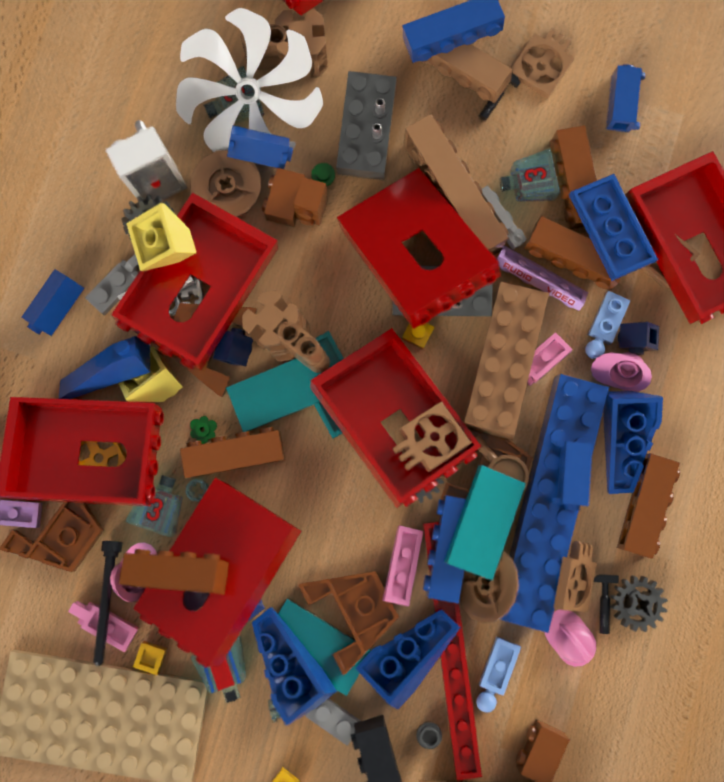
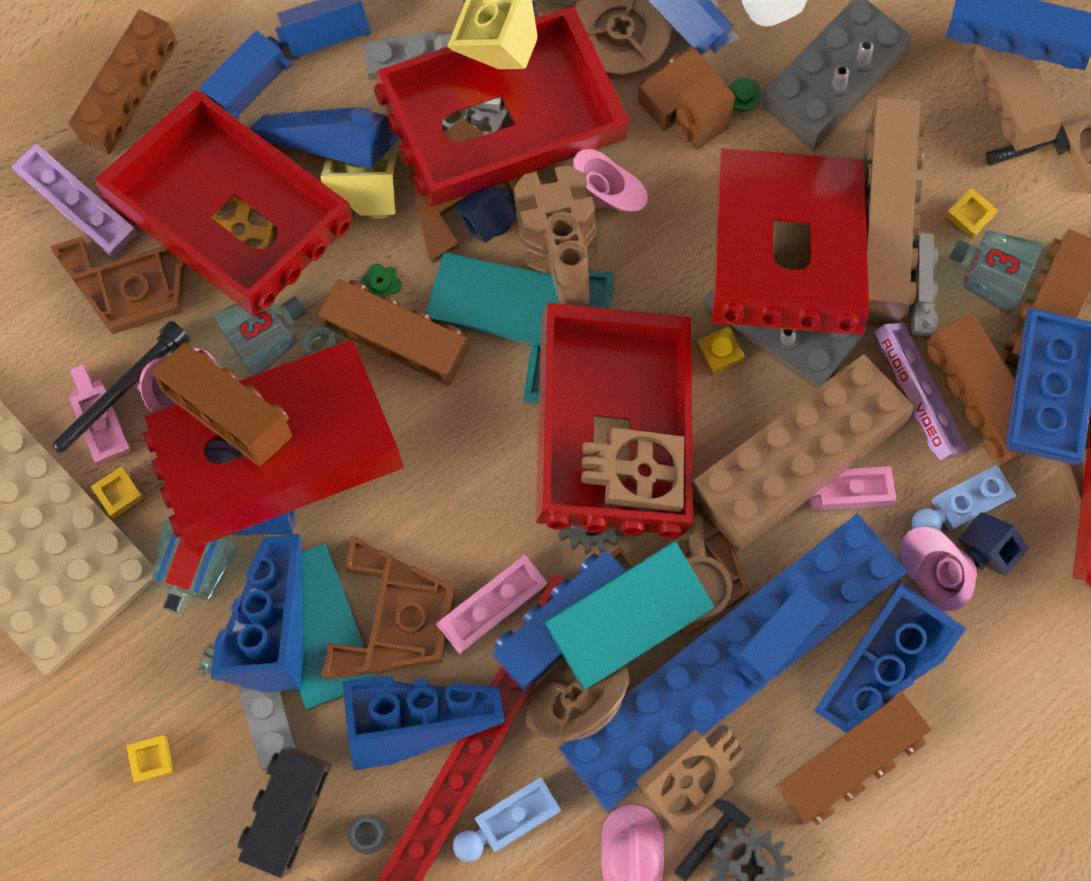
camera: 40 degrees right, 10 degrees down
(31, 366) = (246, 73): none -> blue brick
(289, 281) = (610, 183): none -> bright pink piece
(496, 156) = (971, 213): none -> yellow plate

